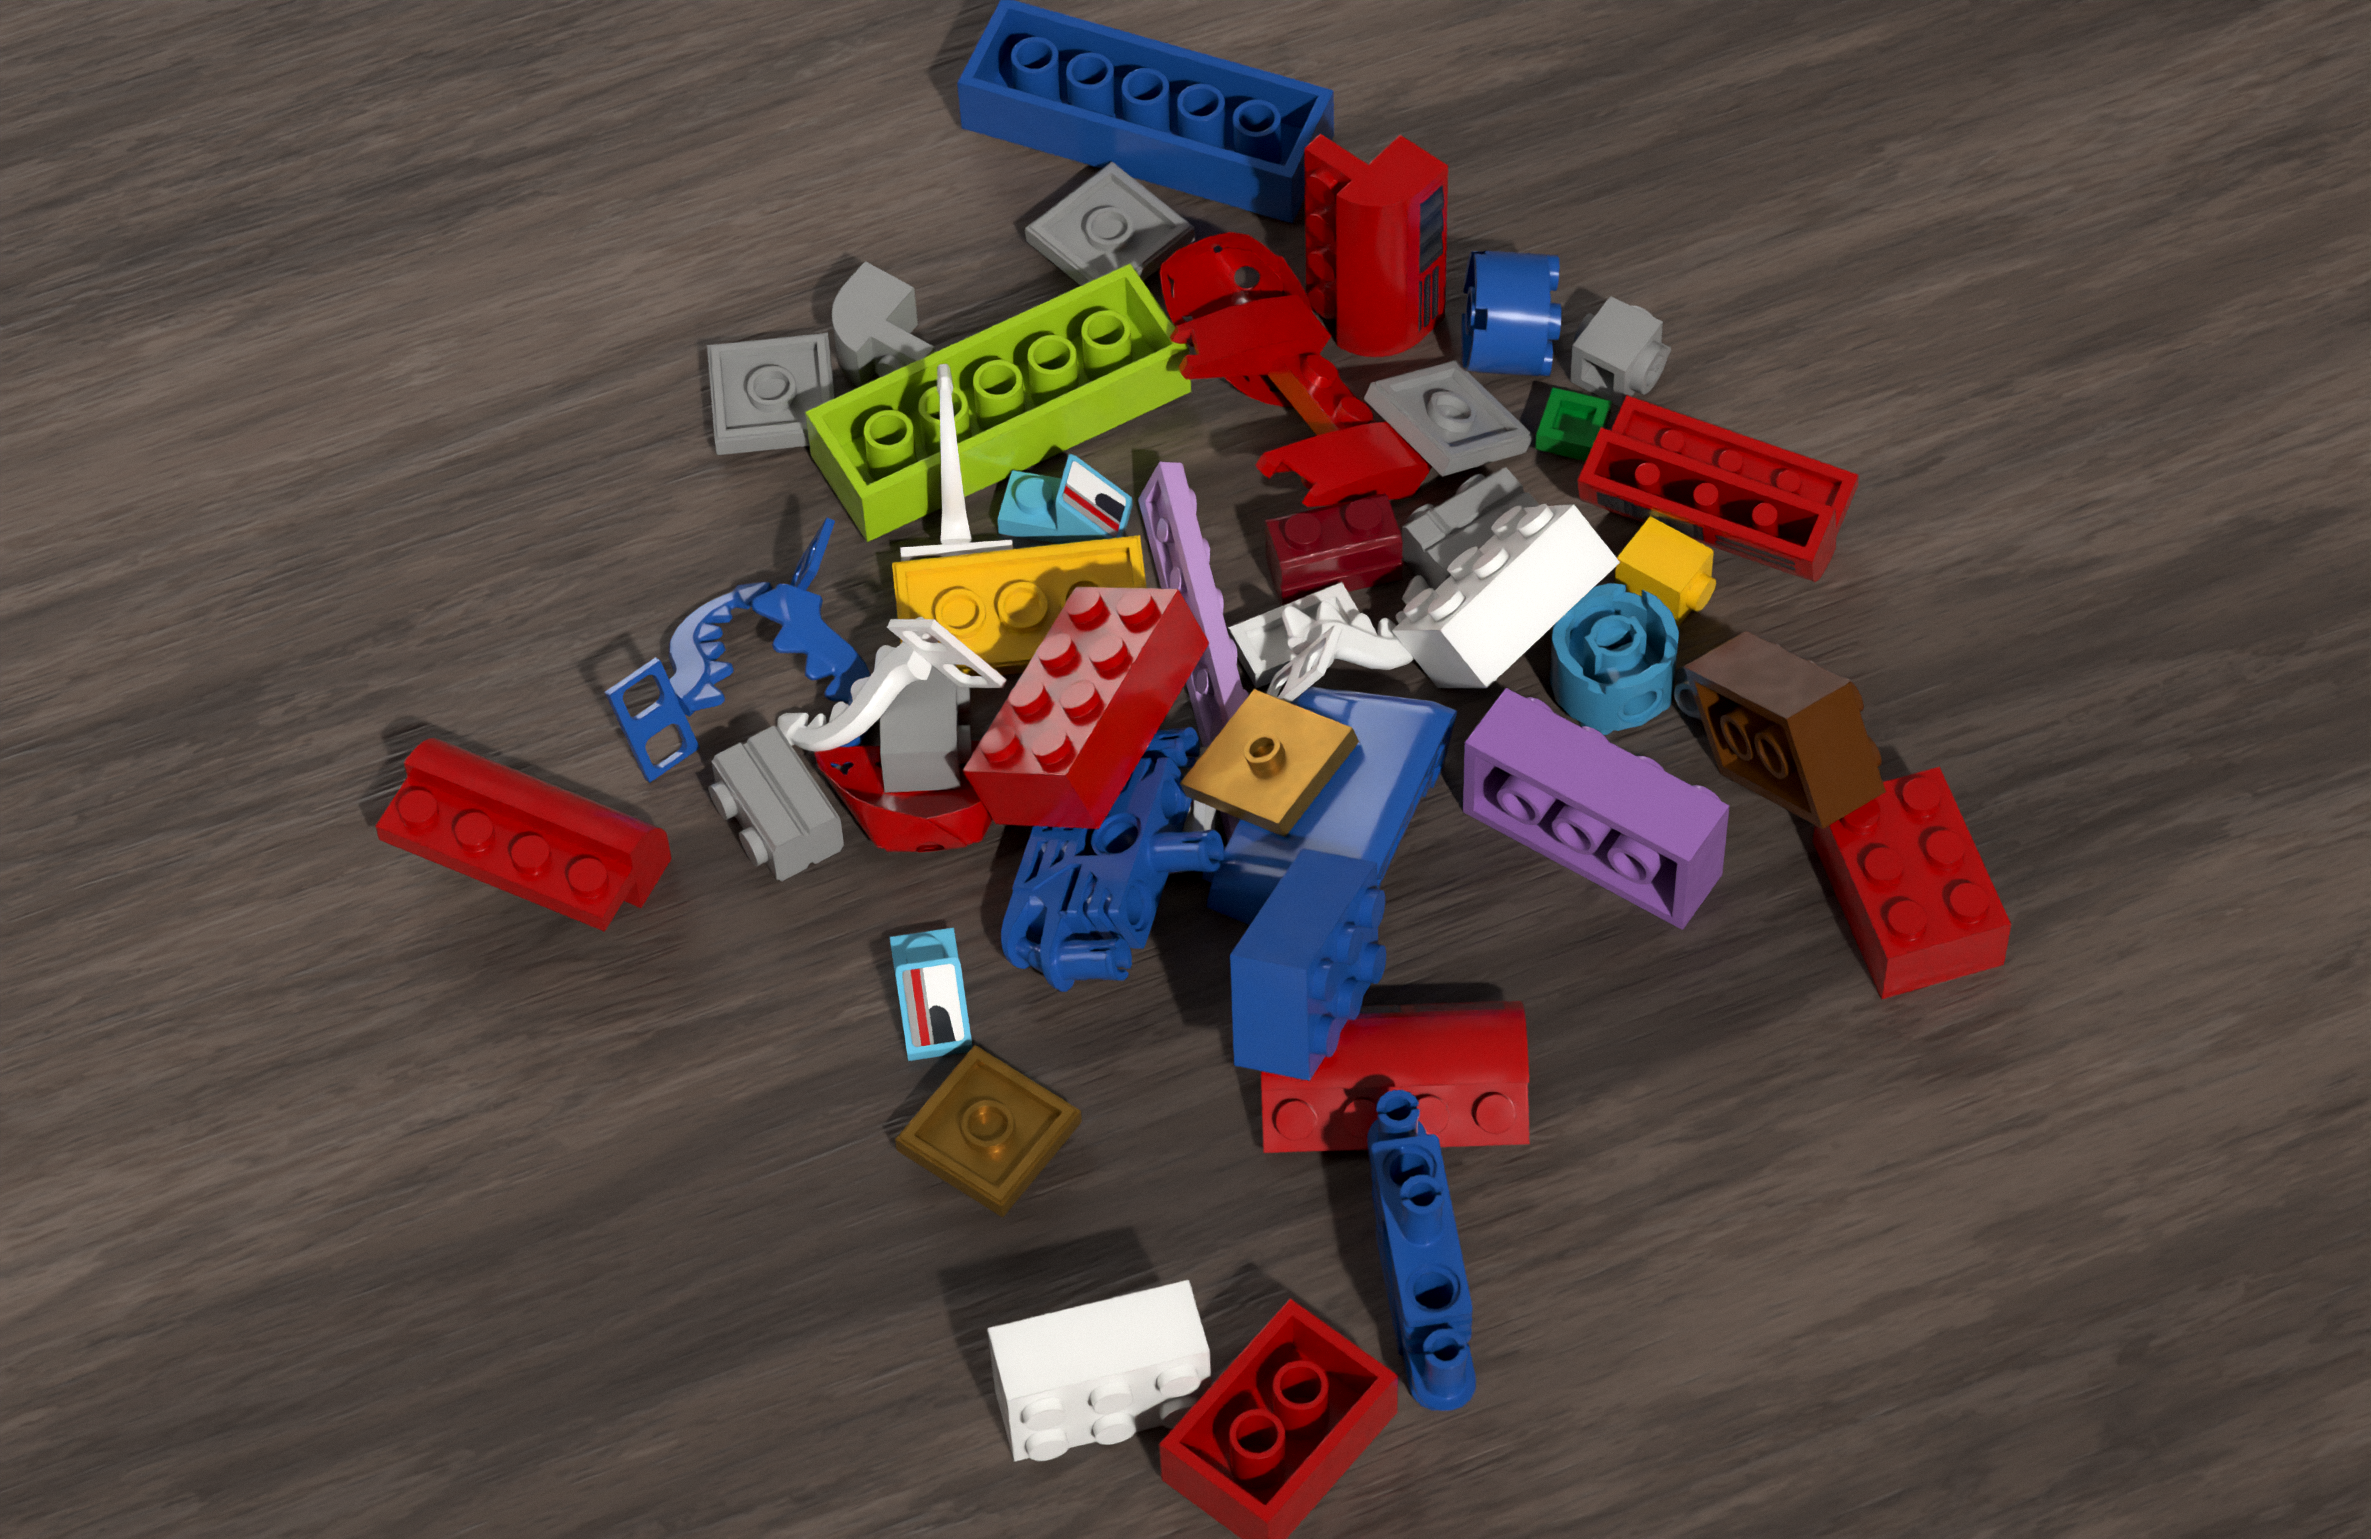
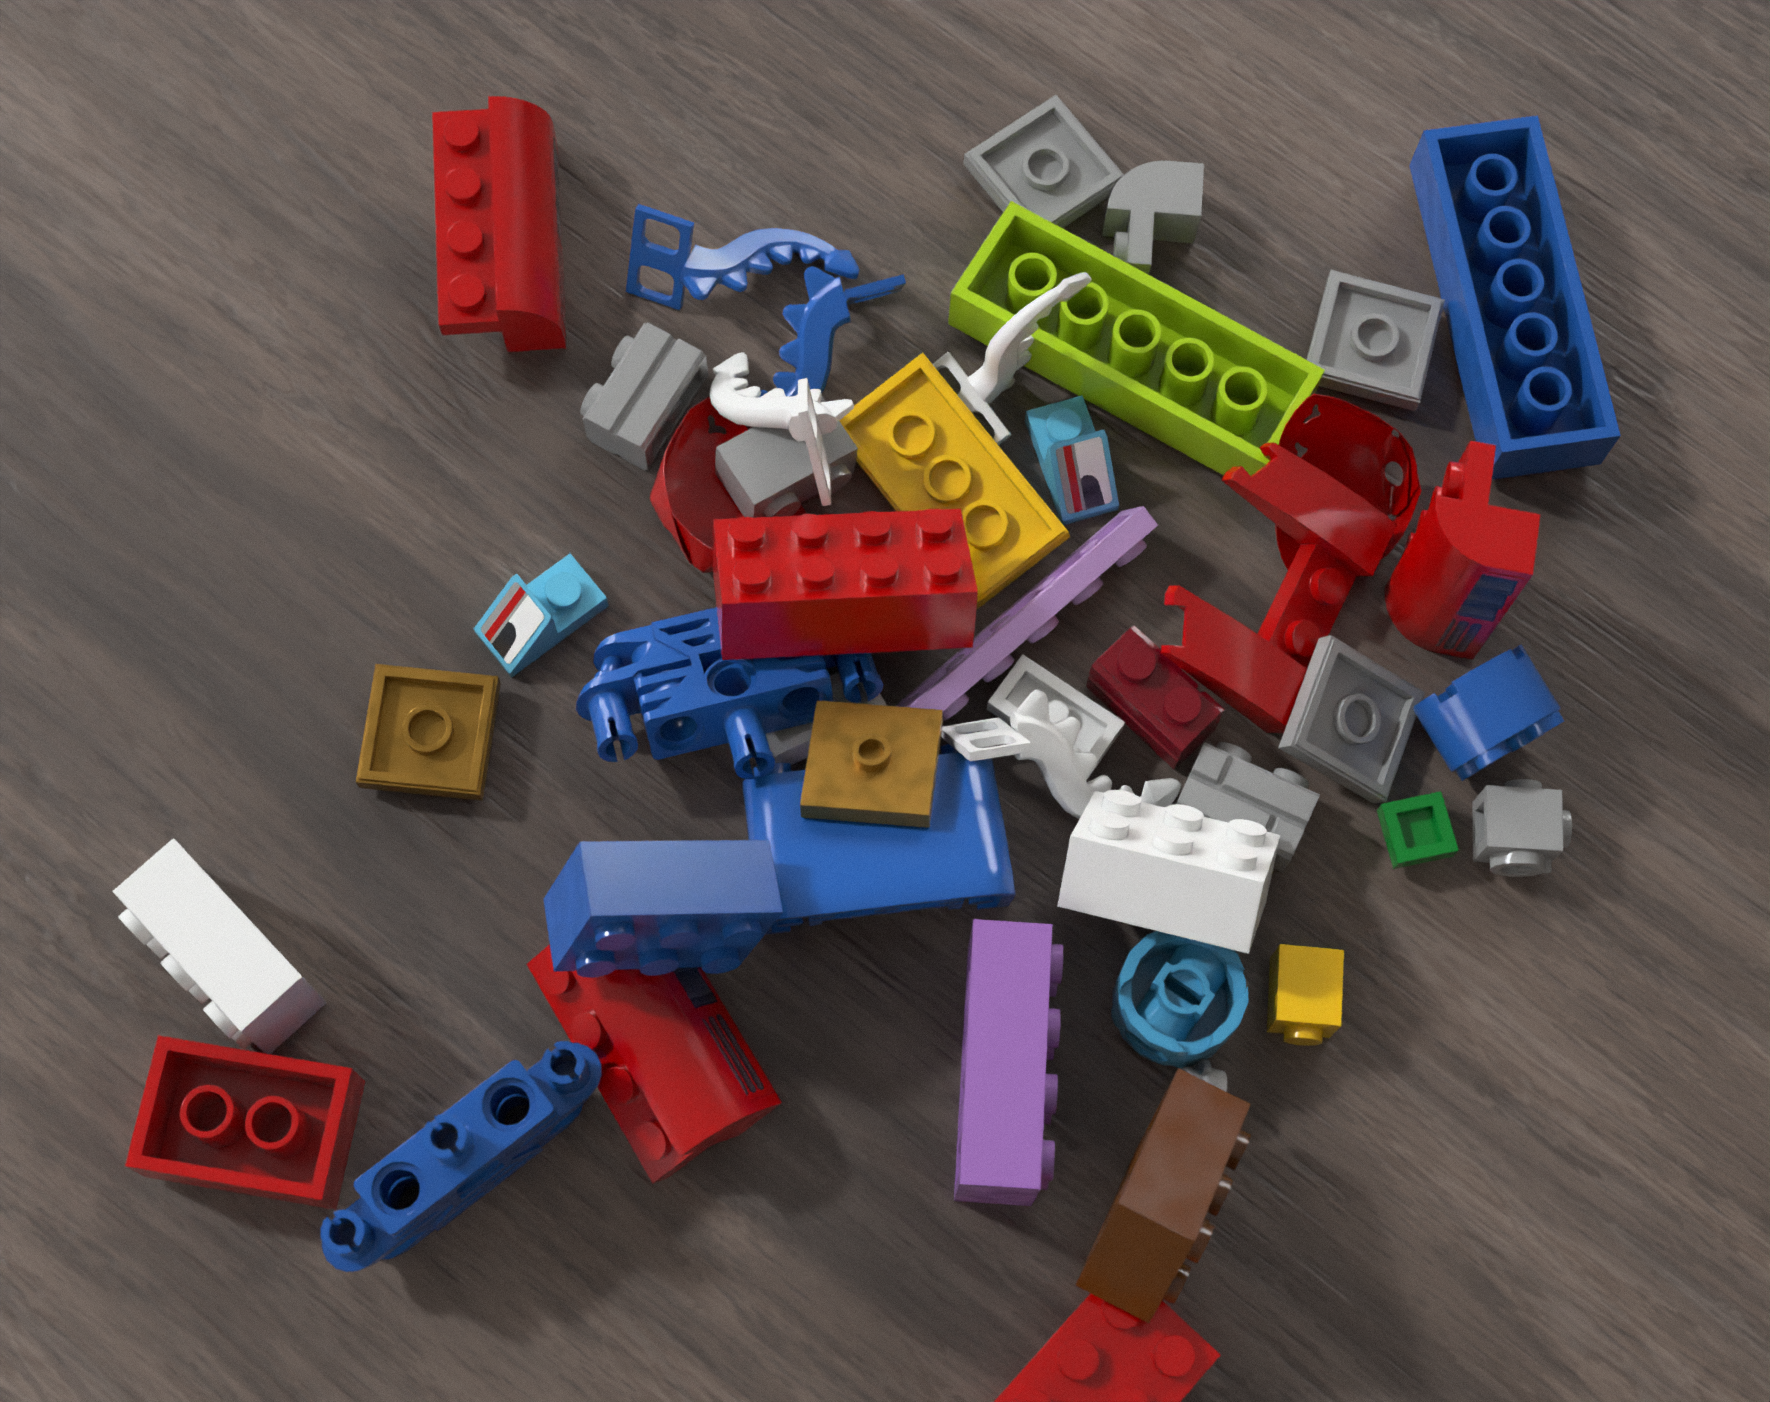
camera: 55 degrees right, 15 degrees up
(1719, 488) = (1417, 995): red brick -> none

